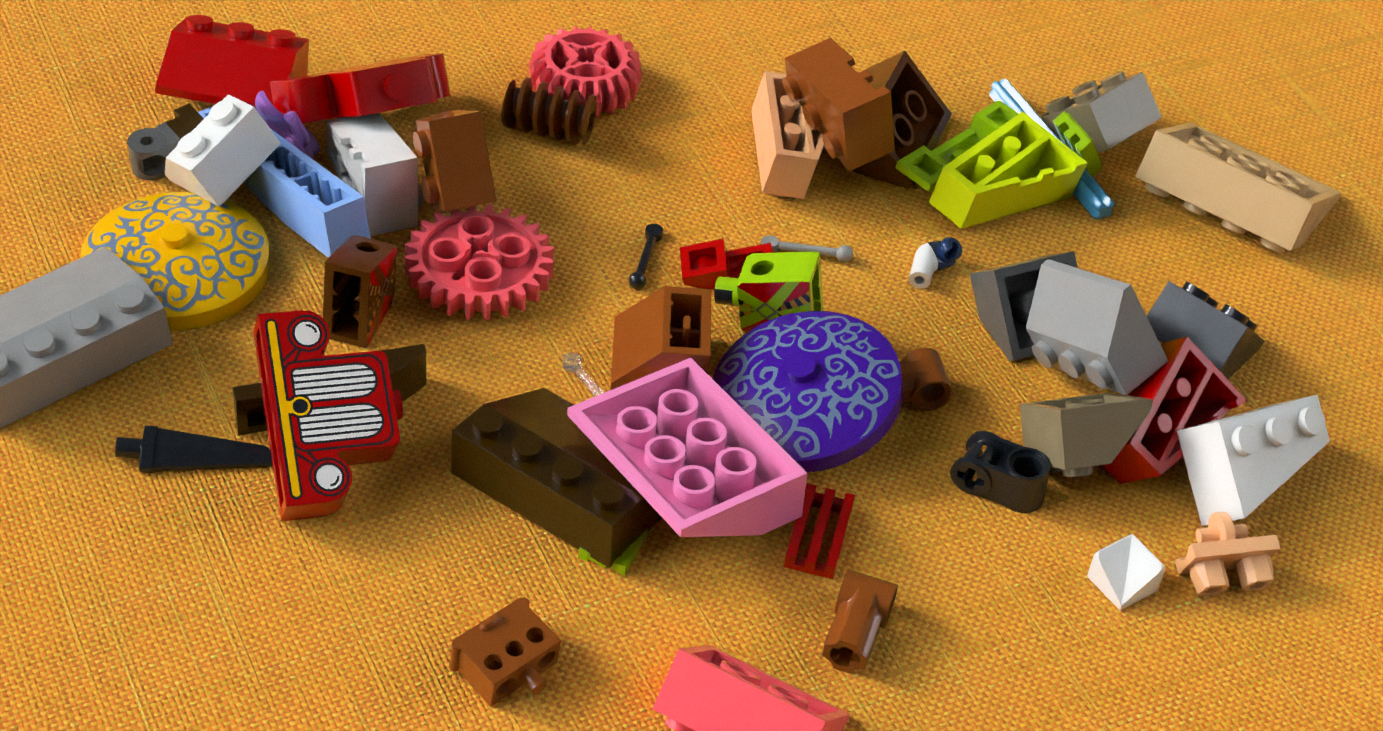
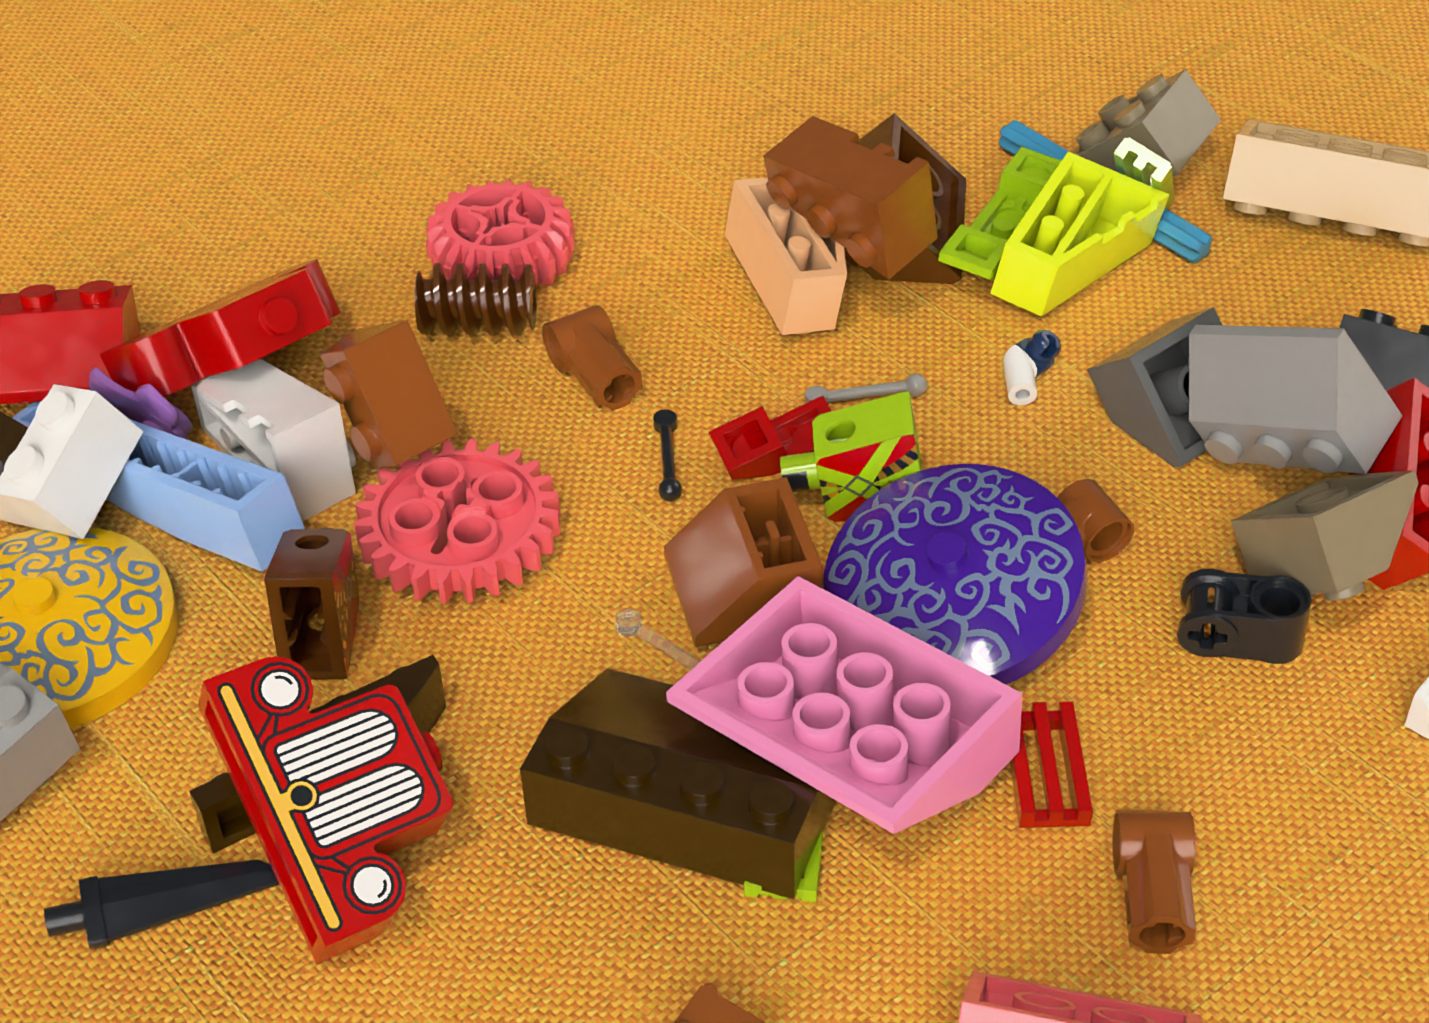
camera: 10 degrees left, 0 degrees up
(617, 167) = (589, 349): none -> dark orange piece

